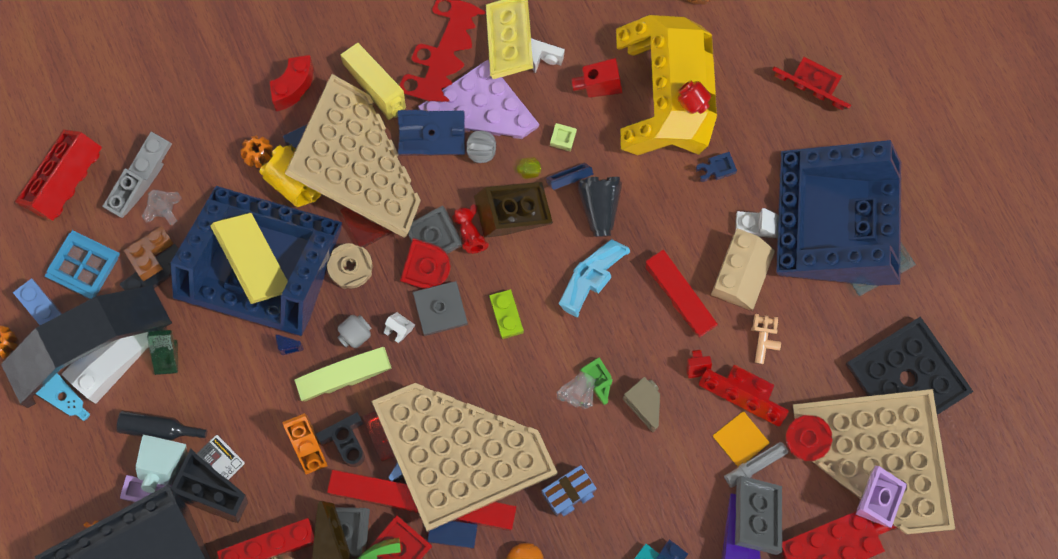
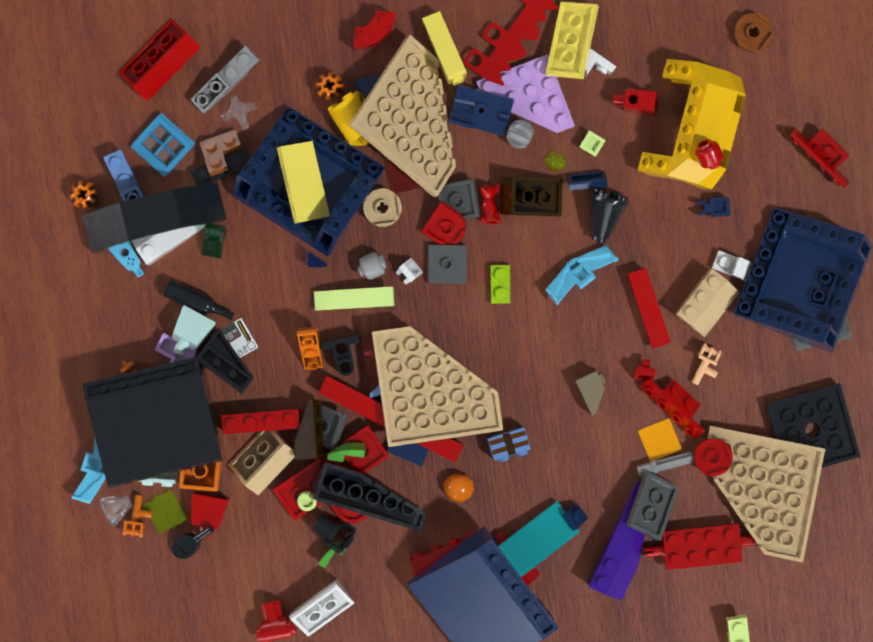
camera: 25 degrees right, 15 degrees up
(578, 391) = (540, 367): clear rock -> none
(603, 379) = (559, 359): bright green slope -> none
(881, 497) = (753, 522): lavender slope -> none

